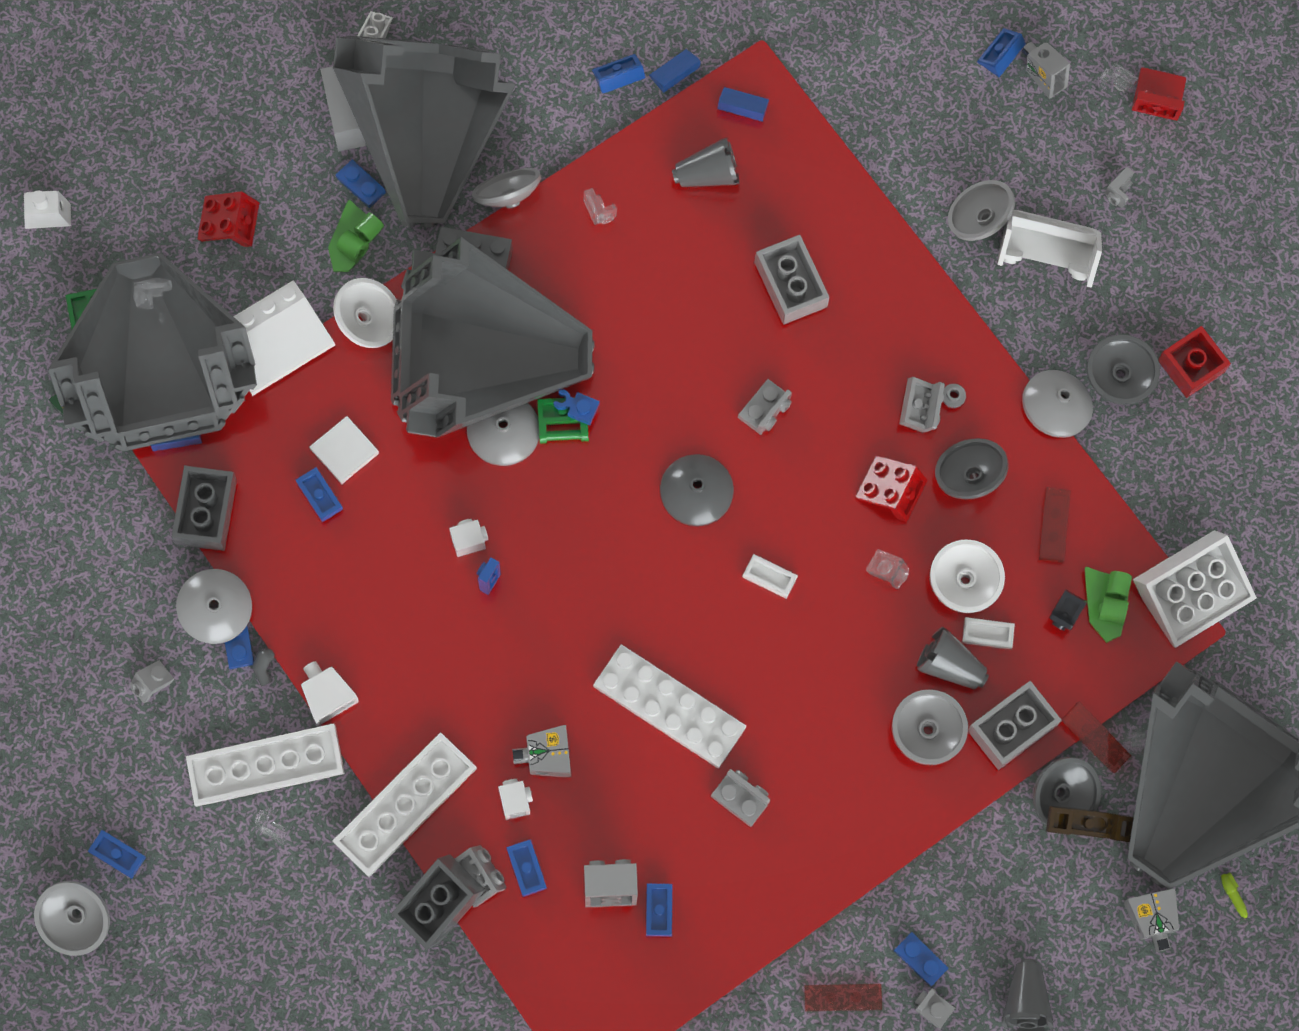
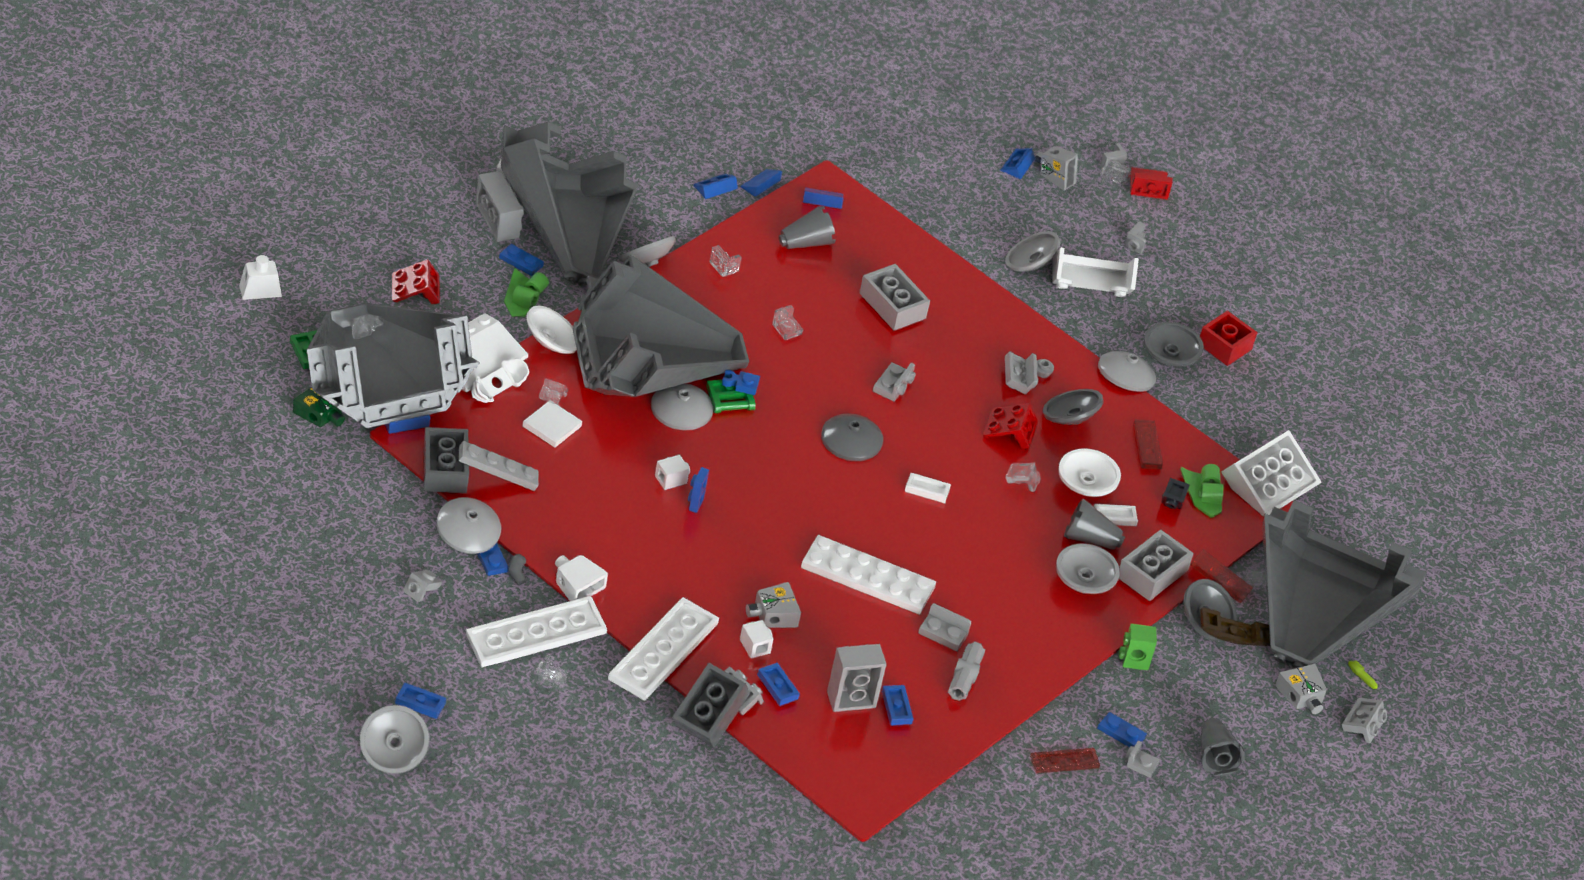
camera: 15 degrees left, 30 degrees down
(261, 523) = (498, 465): none -> light grey plate
(307, 373) = (511, 373): none -> white piece
(319, 494) = (539, 451): blue plate -> none
(351, 404) = (552, 391): none -> clear bracket
(654, 309) = (786, 323): none -> clear bracket
(752, 866) = (966, 671): none -> light grey piece
(965, 847) = (1138, 646): none -> bright green brick
(1124, 55) = (1118, 155): none -> light grey bracket
(1219, 966) = (1365, 718): none -> light grey bracket

